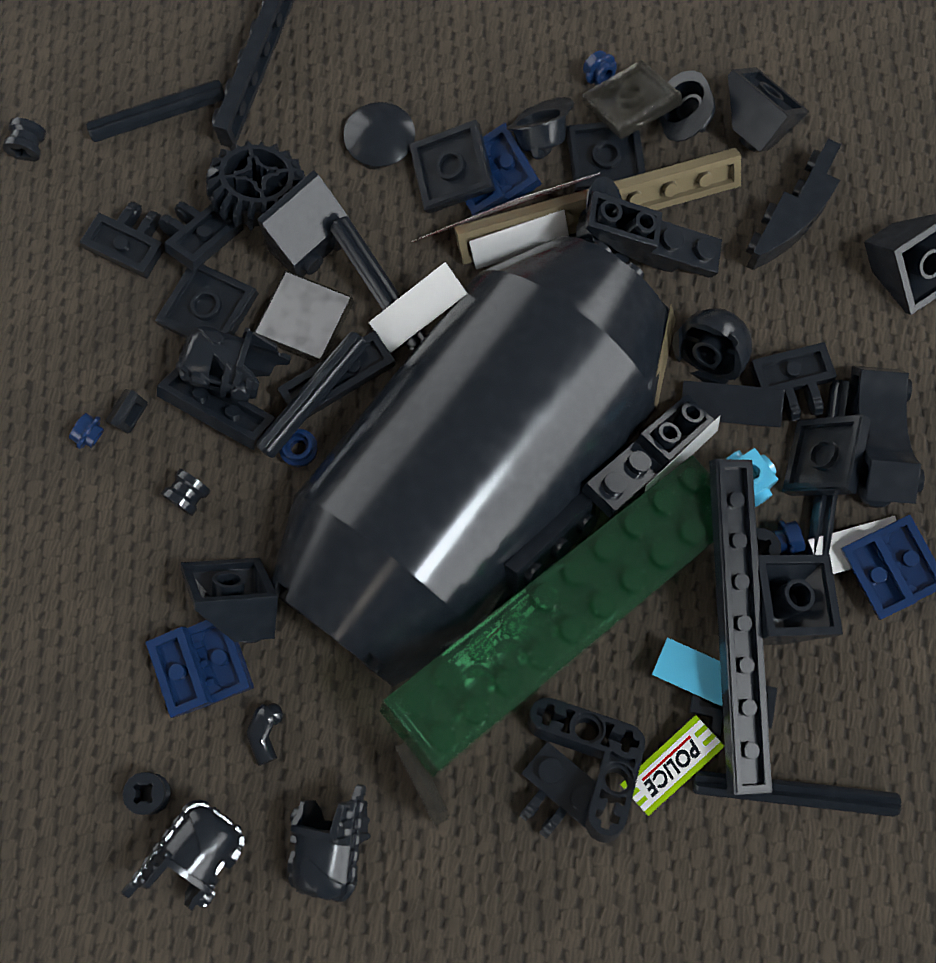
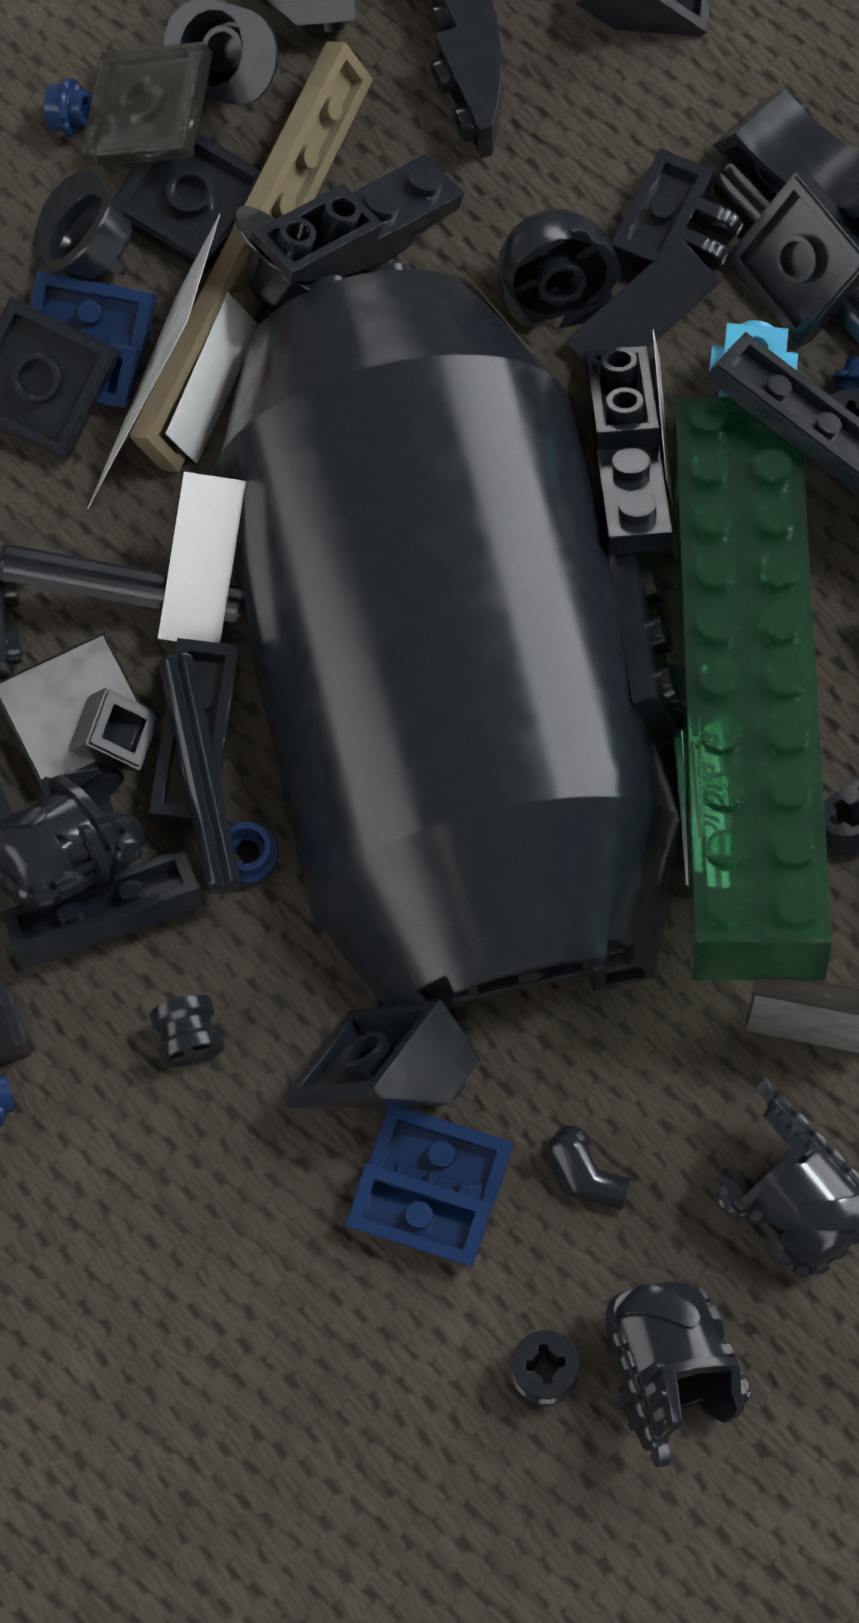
camera: 50 degrees left, 5 degrees down
(305, 341) = (114, 730): none -> black slope

